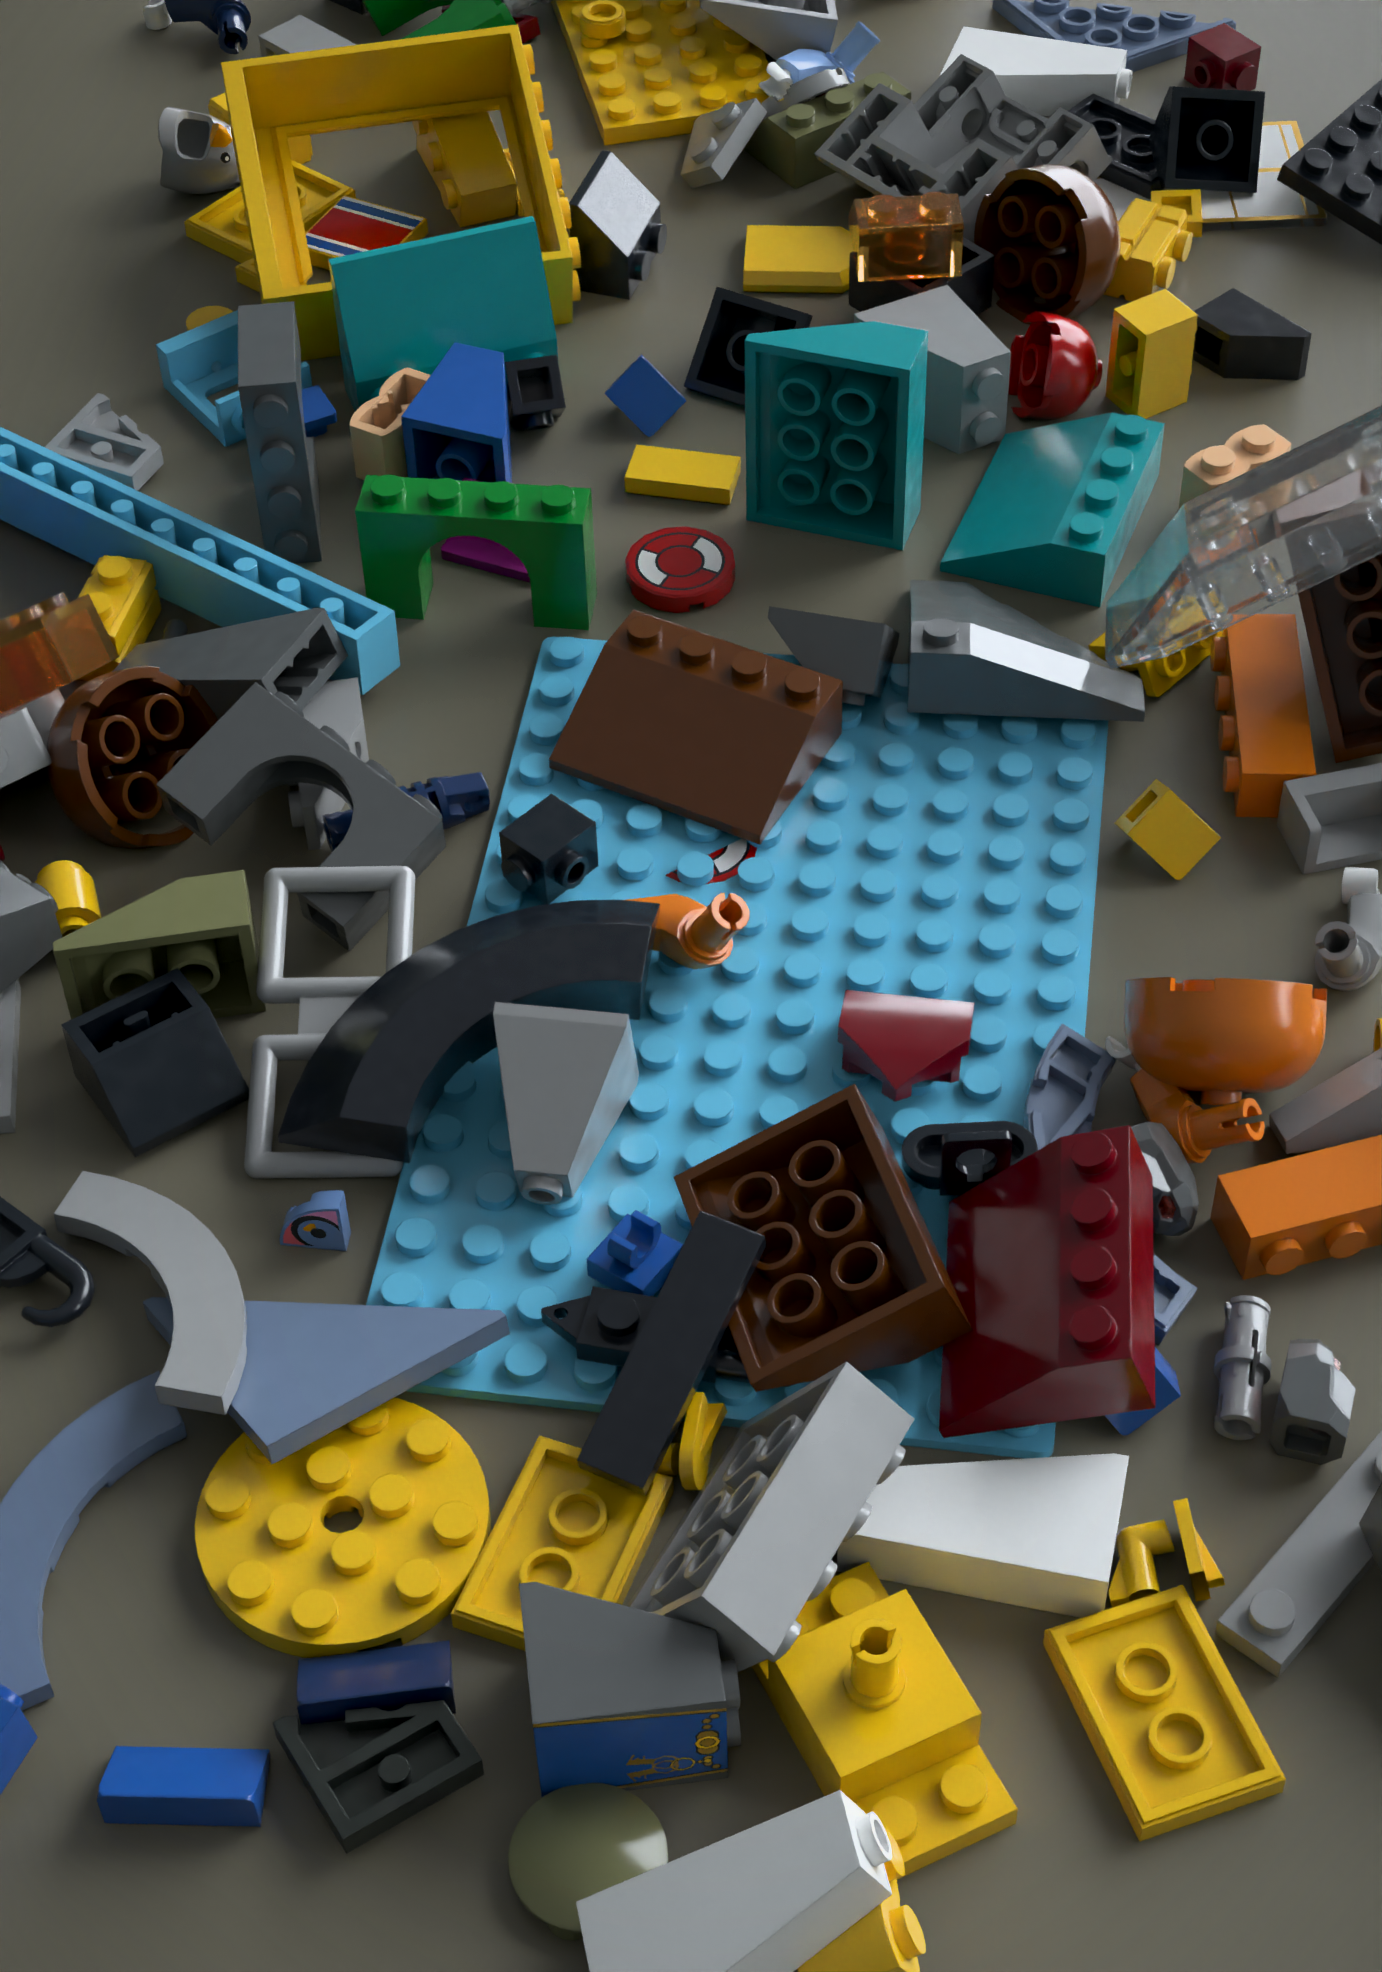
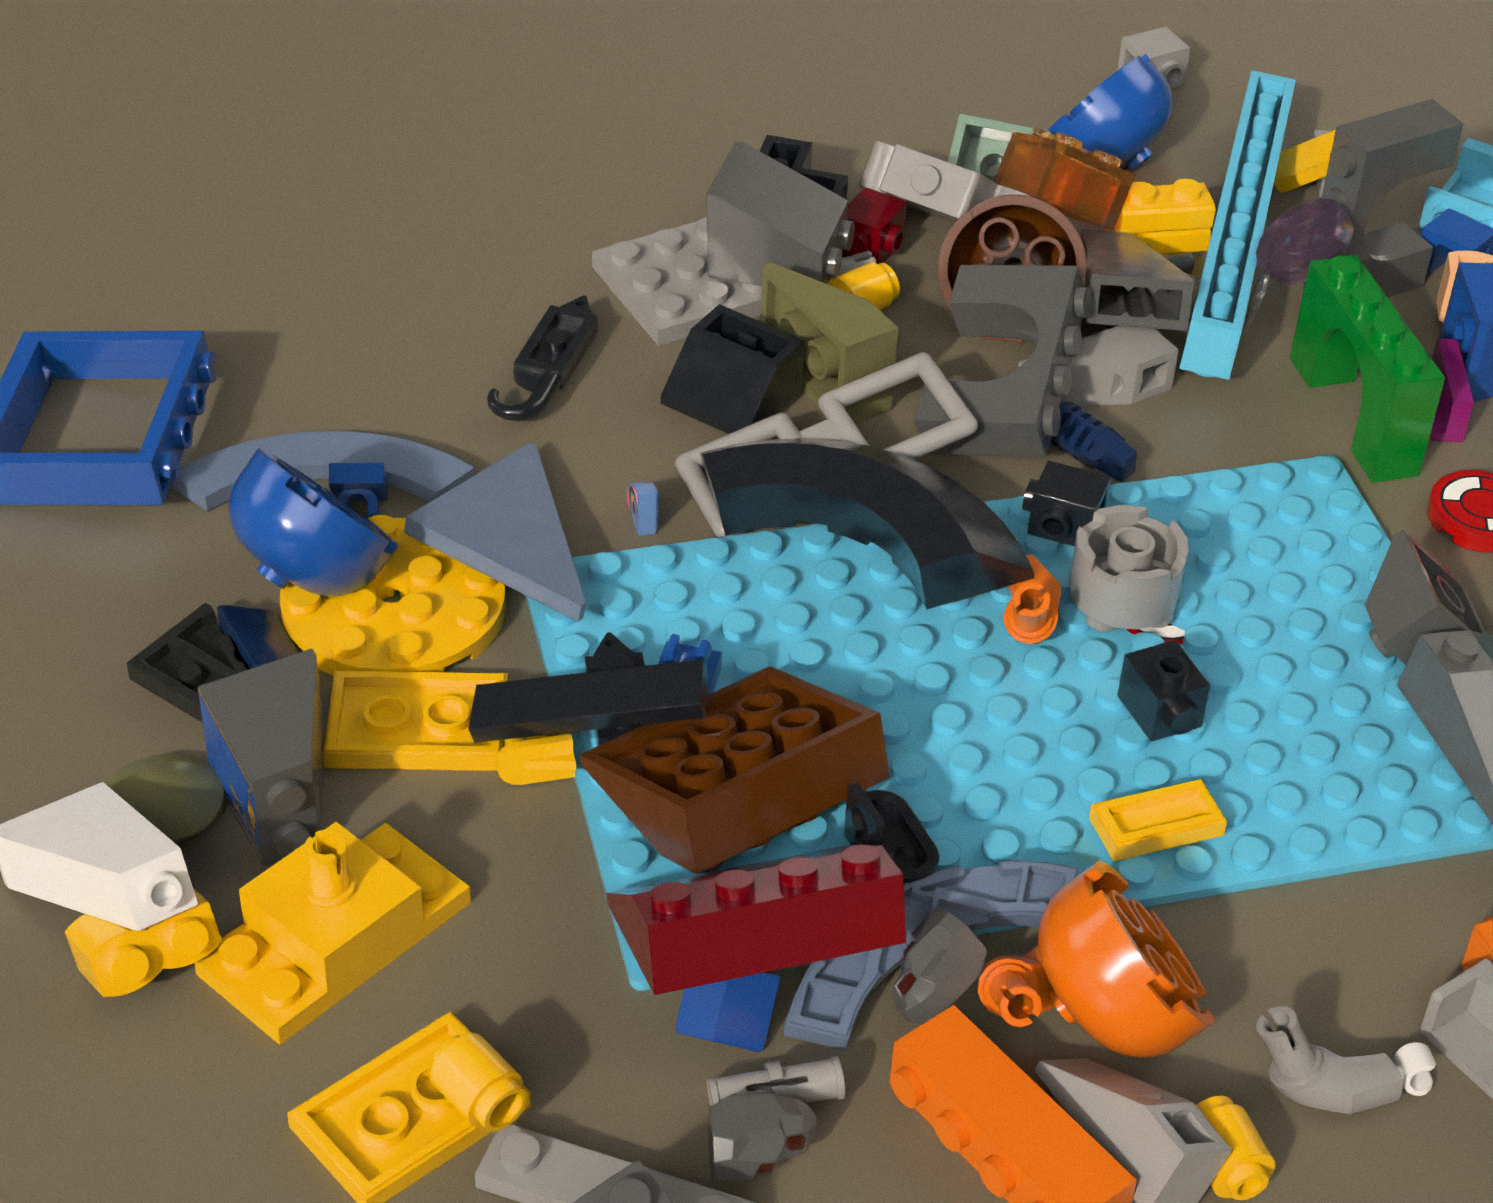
camera: 65 degrees right, 5 degrees down
(114, 442) = (1304, 163): none -> yellow tile
(128, 1503) = (359, 483): none -> blue tile
(184, 1786) = (154, 584): blue slope -> none
(191, 1270) = (541, 456): light grey tile -> none
(246, 1558) = (304, 530): none -> blue cylinder
(304, 505) = (1303, 235): none -> clear purple tile
(562, 1091) = (800, 574): light grey slope -> none
(682, 833) = (1128, 569): none -> light grey brick
(699, 726) = (1272, 557): reddish brown slope -> none
(777, 1514) = (437, 782): light grey slope -> none
(857, 874) = (1163, 690): none -> black brick
(904, 1039) = (1004, 770): dark red slope -> none
(998, 1530) = (532, 960): white slope -> none
(1009, 947) = (1157, 820): none -> yellow tile
(1136, 1546) = (560, 1079): yellow piece -> none
(1167, 830) = (1385, 902): yellow panel -> none
(1190, 1614) = (478, 1082): none -> yellow brick

